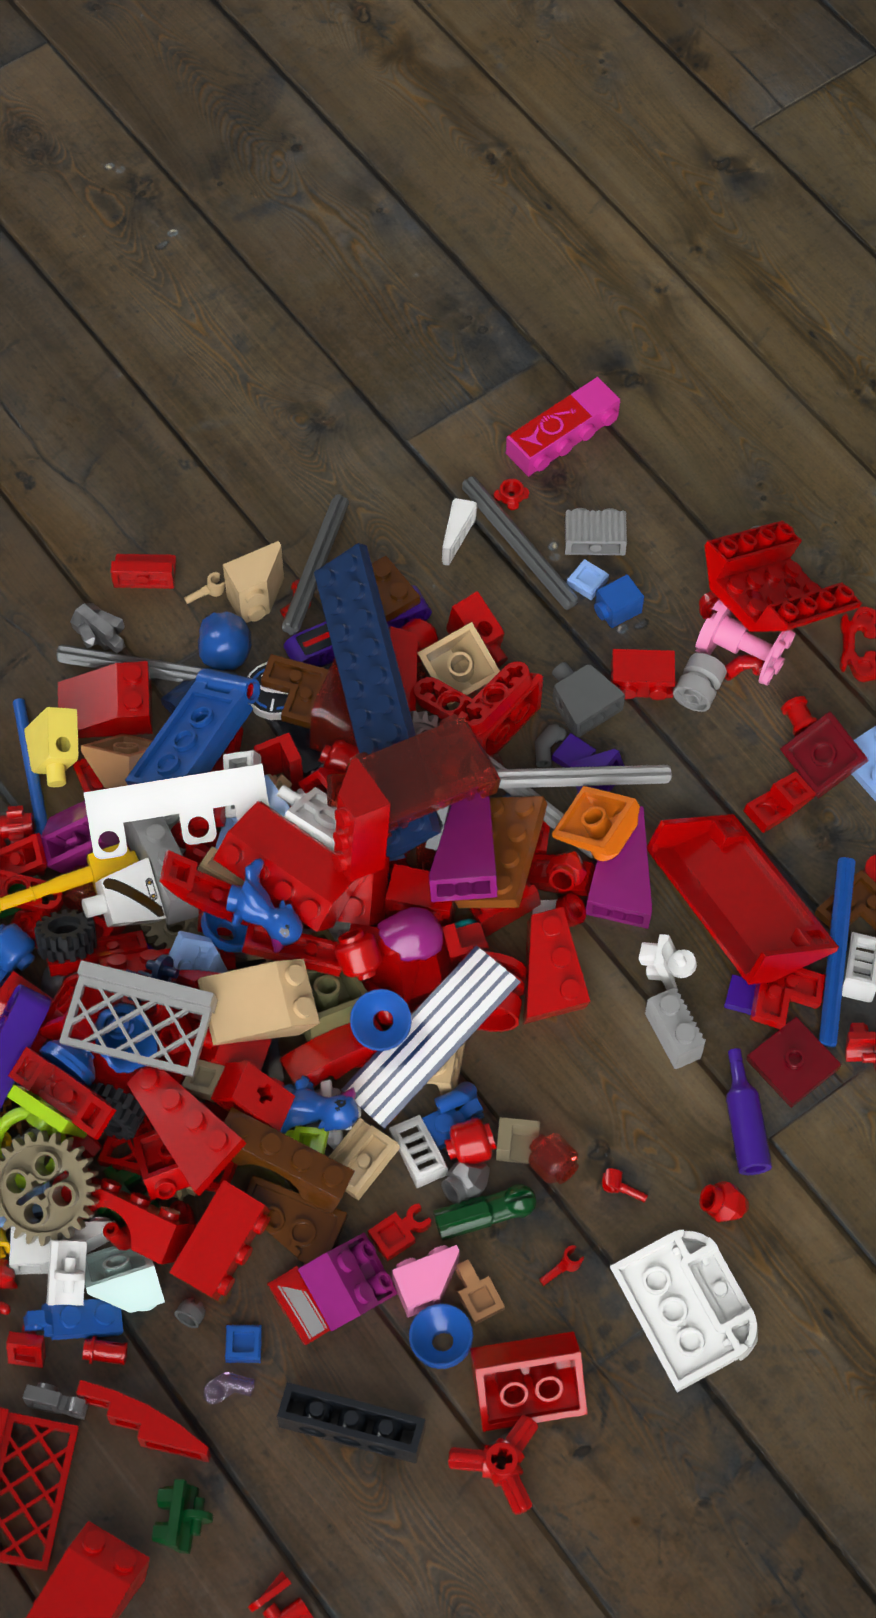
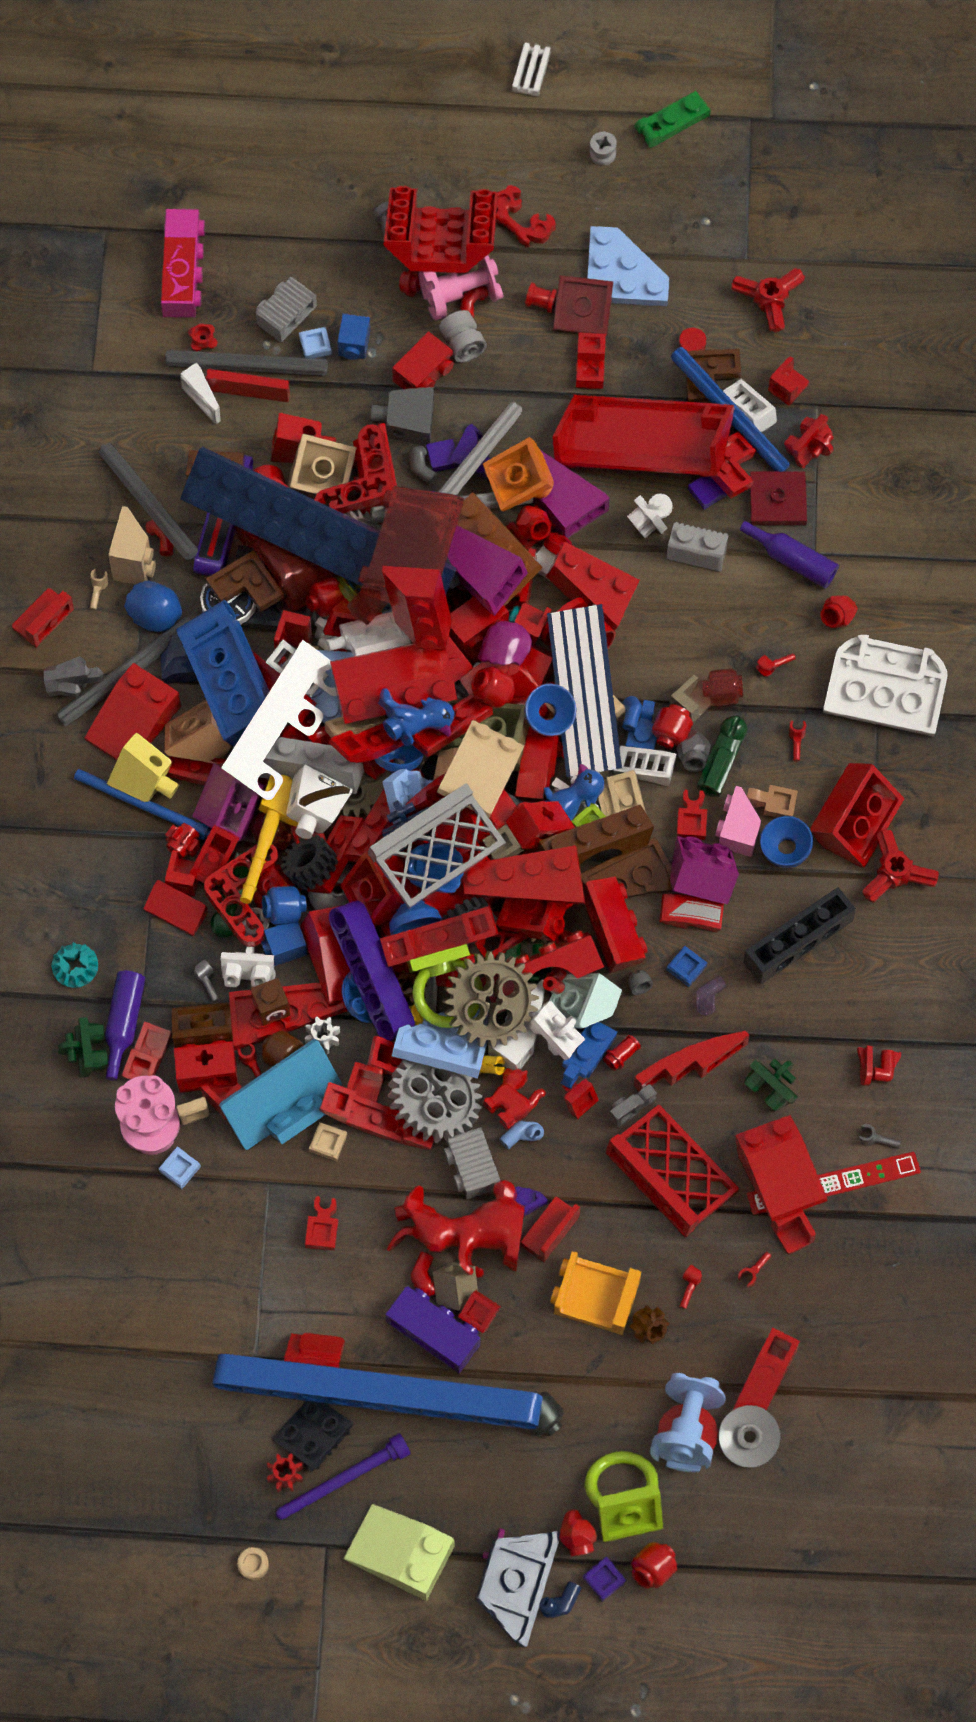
camera: 50 degrees left, 5 degrees up
(496, 558) = (248, 385): none -> red tile

